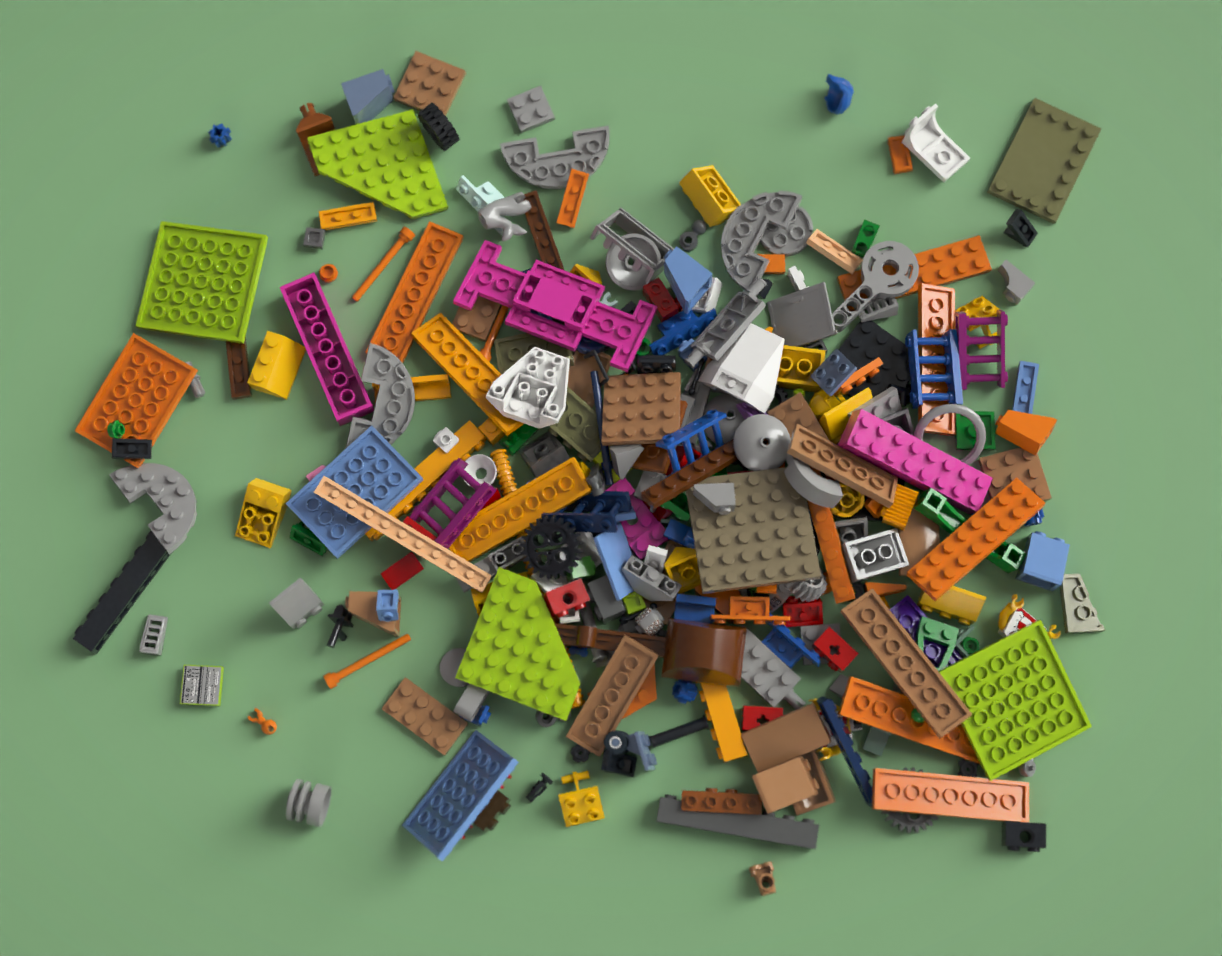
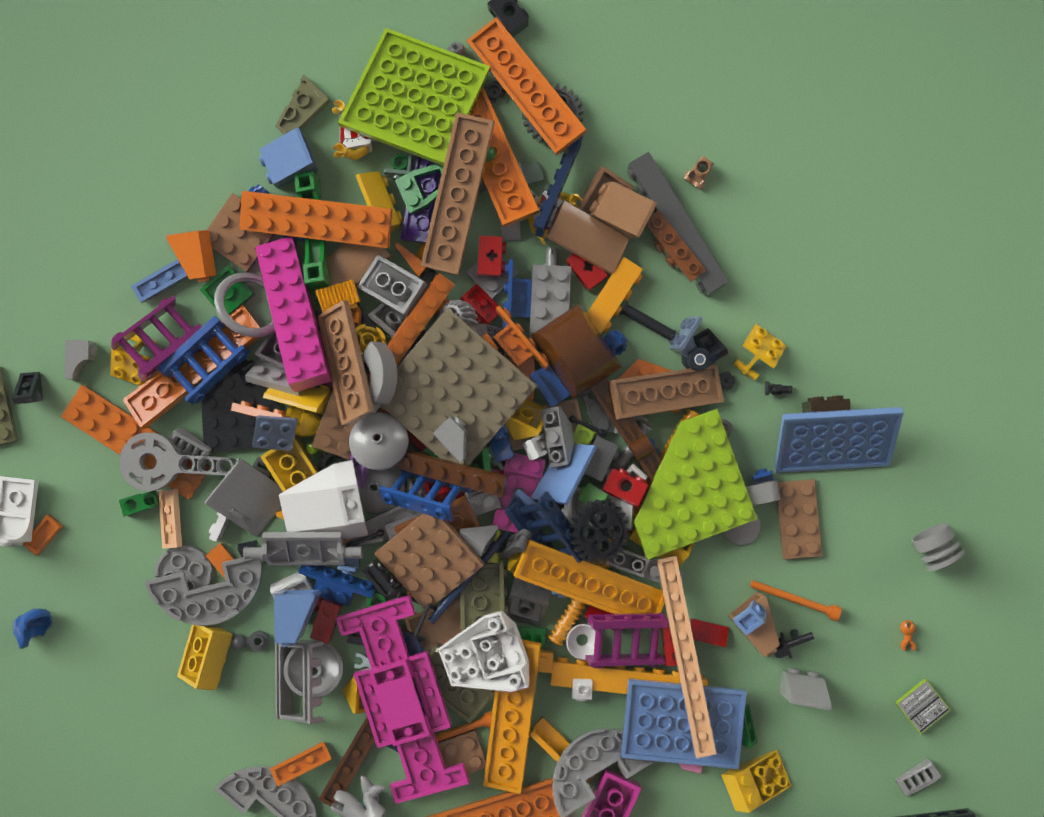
camera: 135 degrees left, 10 degrees up
(649, 622) = (588, 411): light grey head -> none

